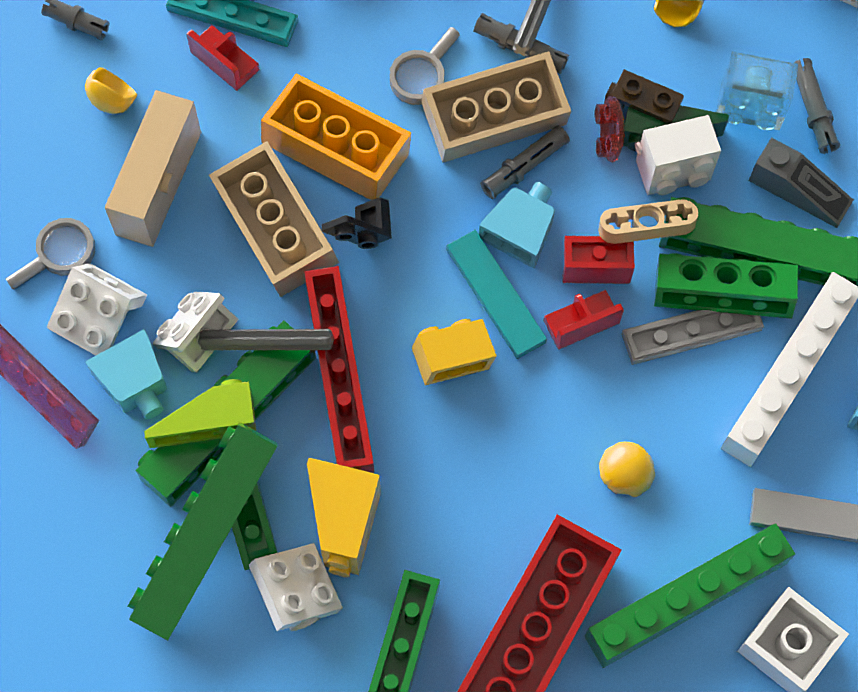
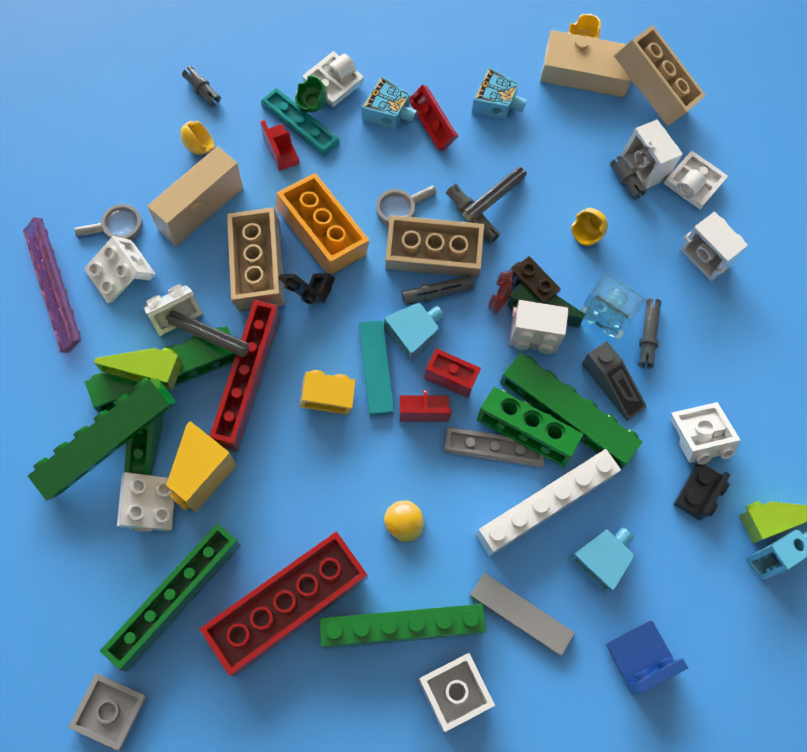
camera: 20 degrees right, 0 degrees up
(131, 375) = (117, 319): medium azure torso -> none
(658, 211) = (485, 366): tan beam -> none

